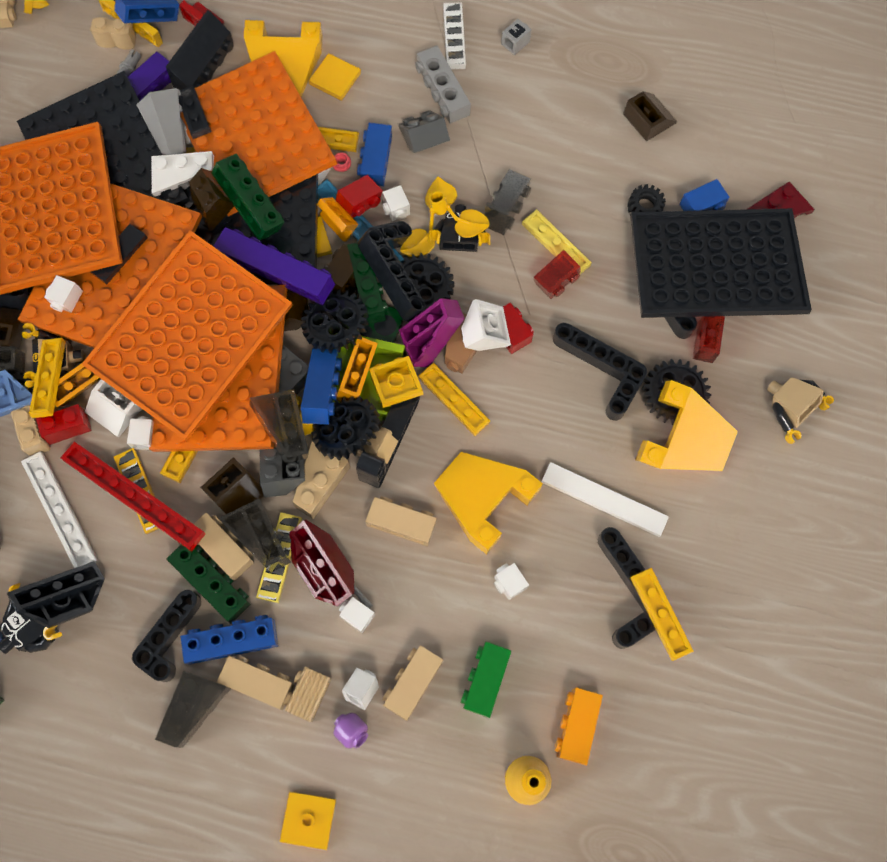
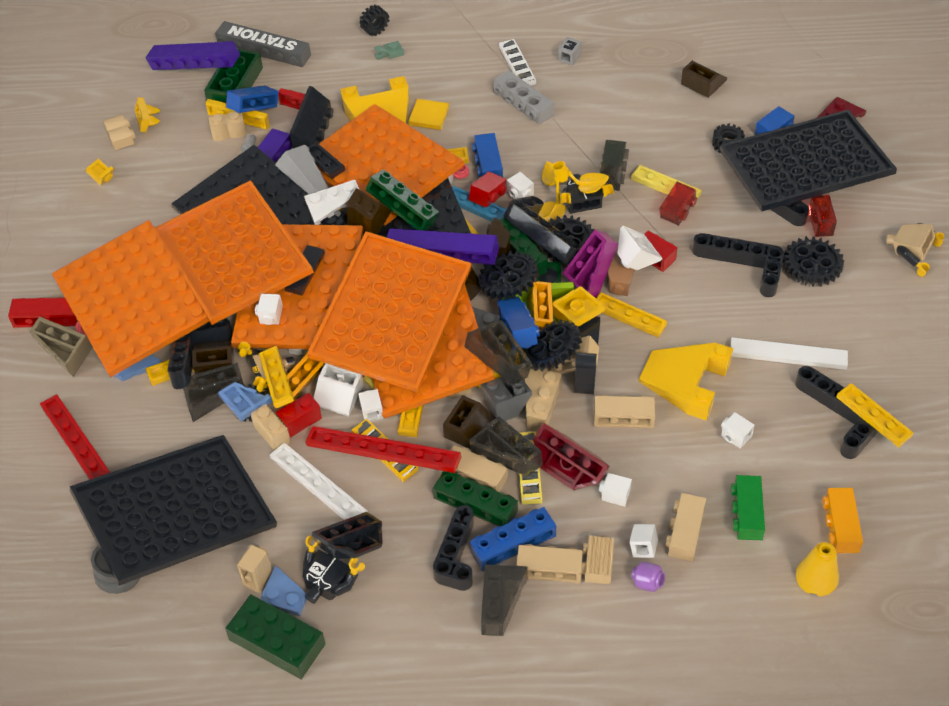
camera: 10 degrees left, 20 degrees down
(308, 820) = (639, 658): yellow plate -> none
(337, 218) = (476, 210): light orange panel -> none
(424, 131) = (522, 132): dark grey slope -> none
(698, 436) = (845, 285): yellow wedge -> none

